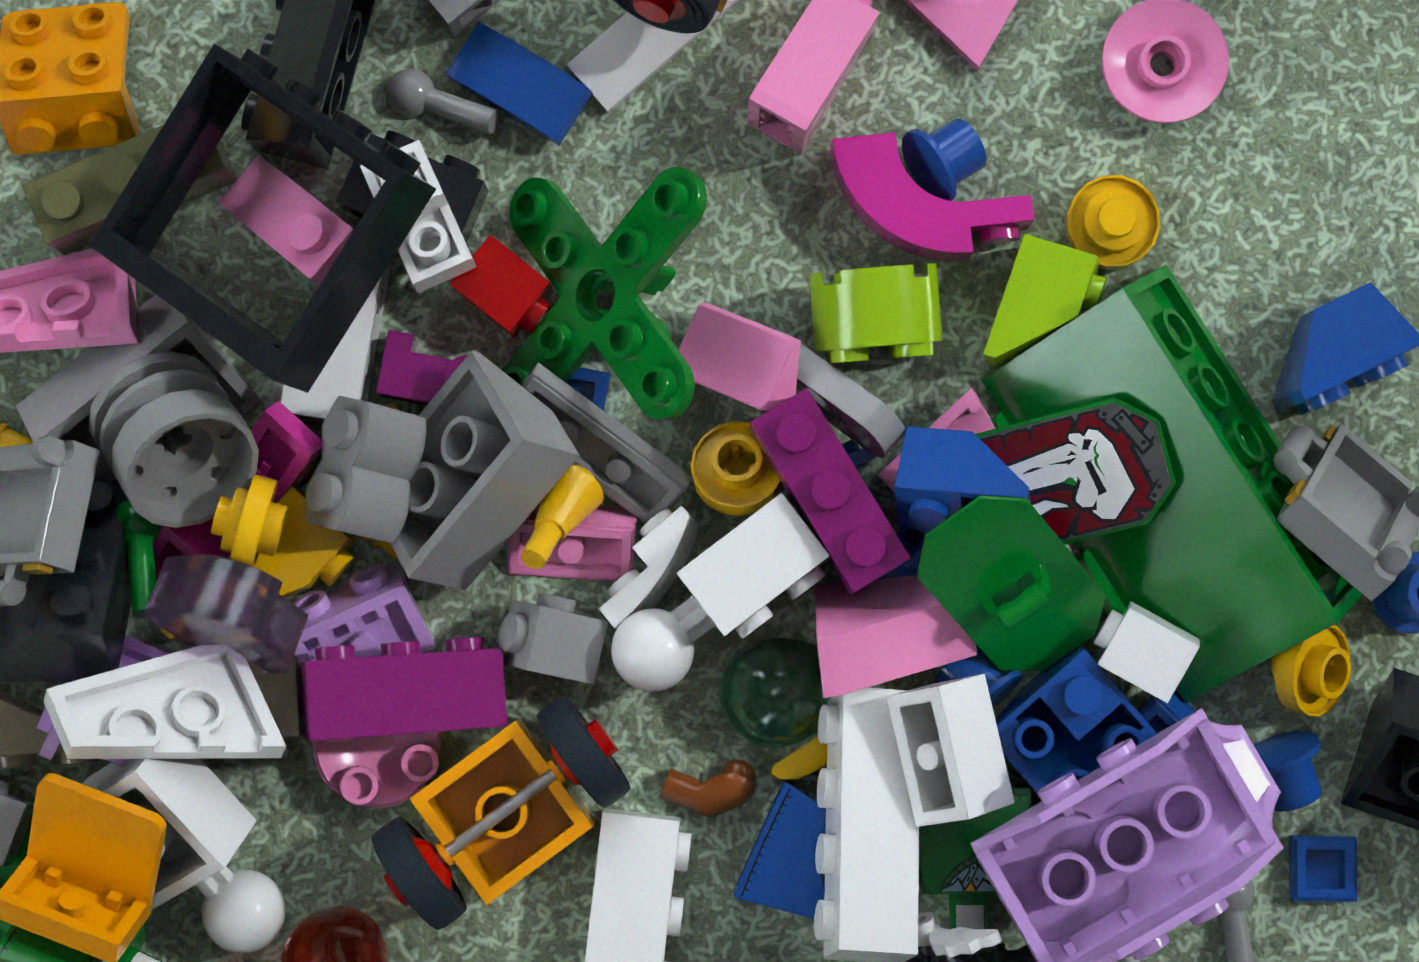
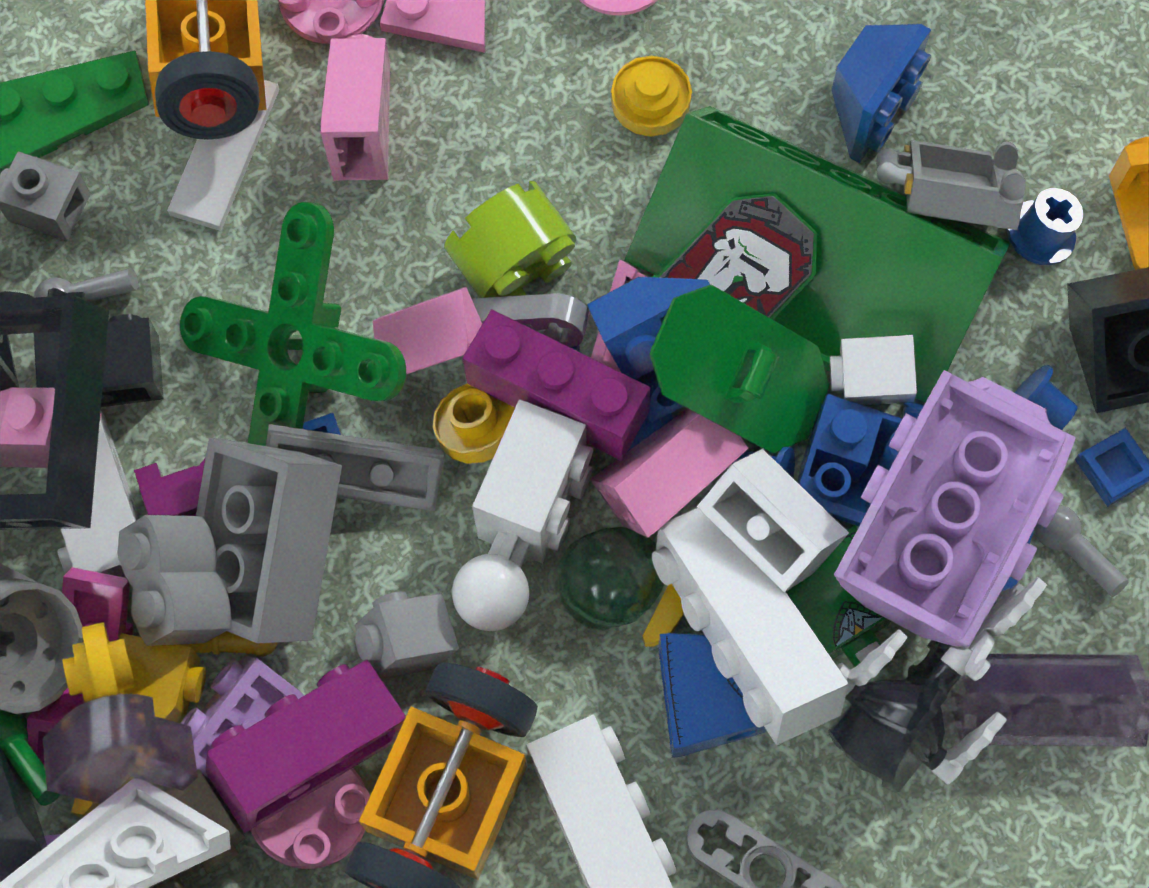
camera: 30 degrees left, 15 degrees down
(435, 245) = (130, 380): white slope -> none
(505, 288) = (210, 393): red brick -> none
(519, 83) = (137, 240): blue slope -> none
(561, 512) = (353, 525): yellow cone -> none
(593, 551) = (379, 559): bright pink slope -> none
(664, 550) = (453, 520): white slope -> none
(713, 795) = (610, 687): dark orange arm -> none
(910, 217) = (480, 168): dark pink arch -> none
(943, 157) = (496, 119): blue piece -> none
(1043, 294) = (629, 165): lime slope -> none
(1313, 672) = (1008, 321): yellow plate -> none

